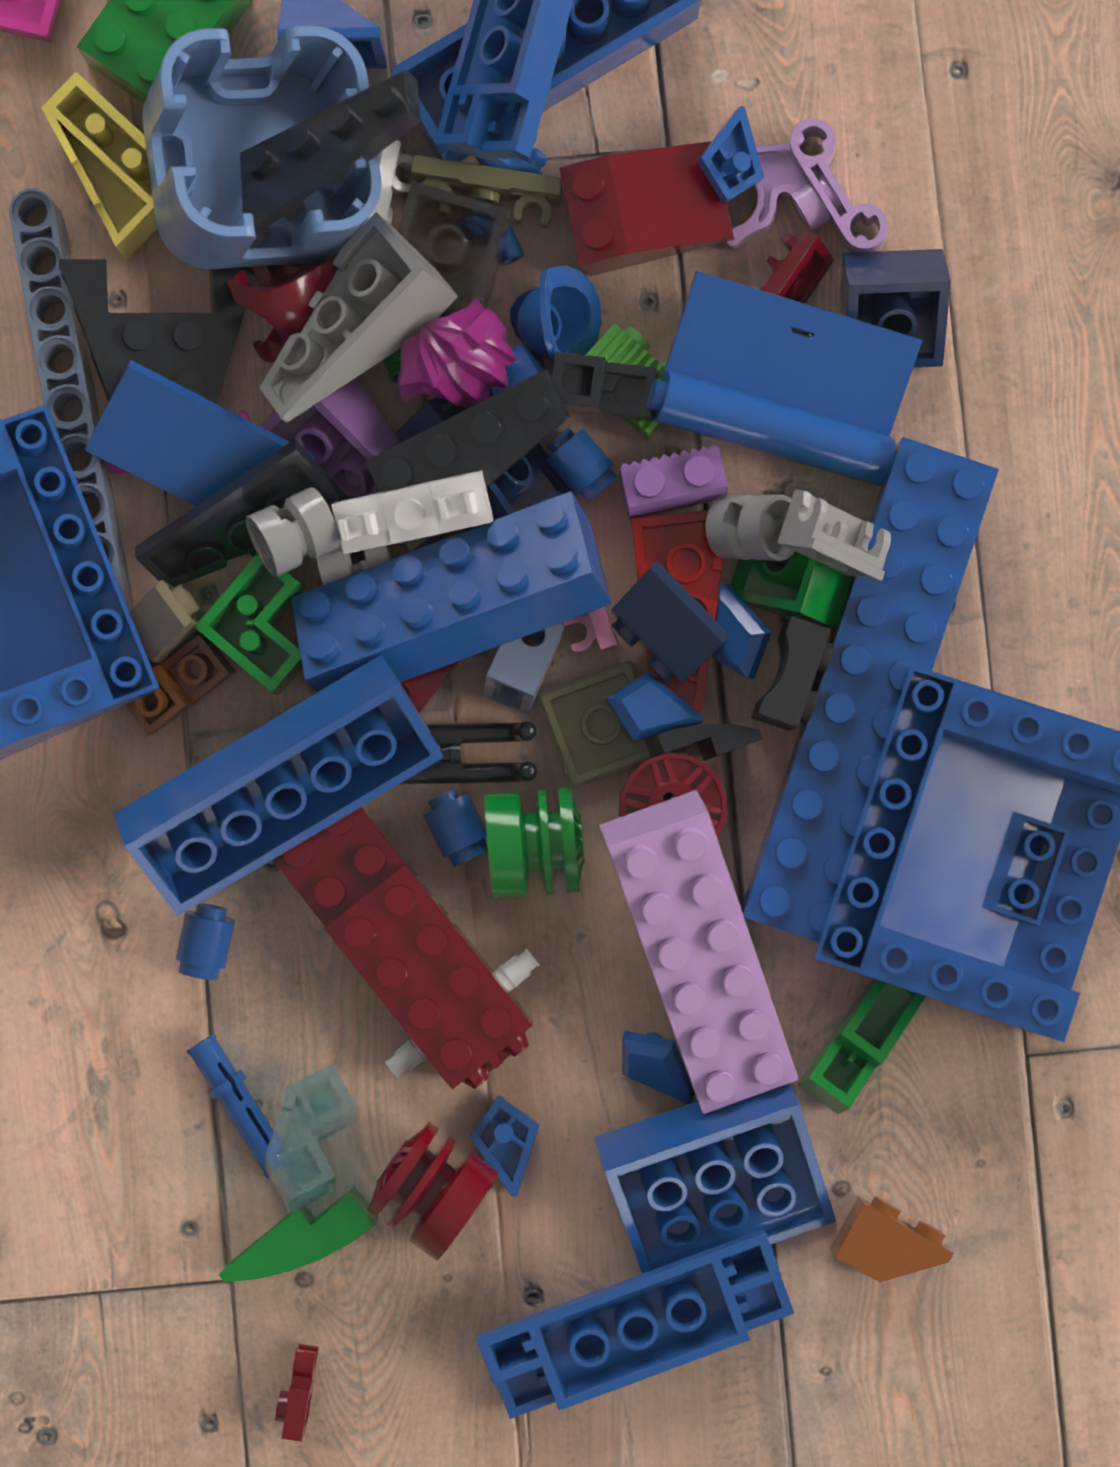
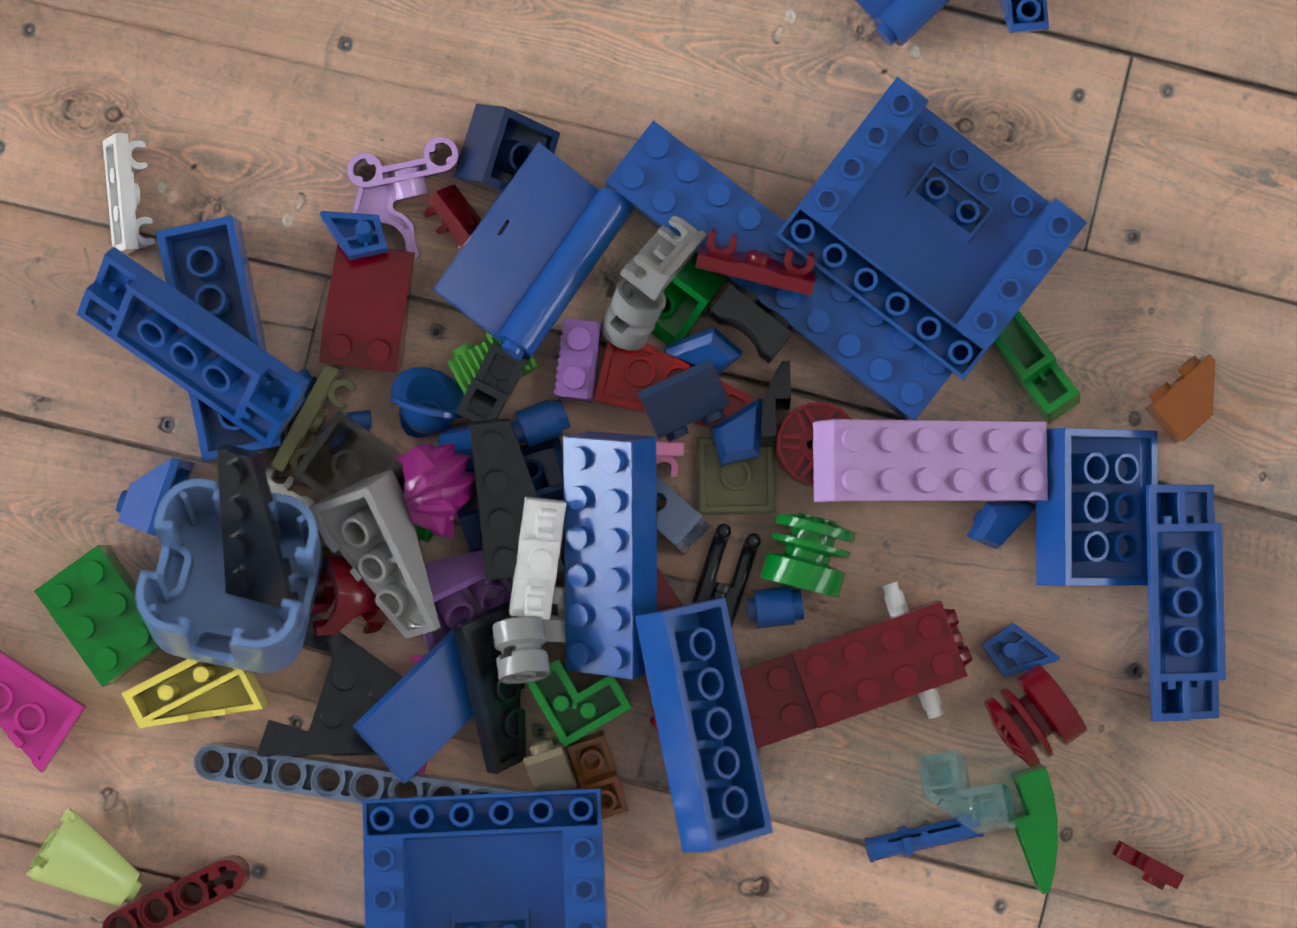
camera: 70 degrees left, 0 degrees up
(204, 941) = (796, 821): blue brick -> none
(865, 654) = (757, 265): none -> dark red plate

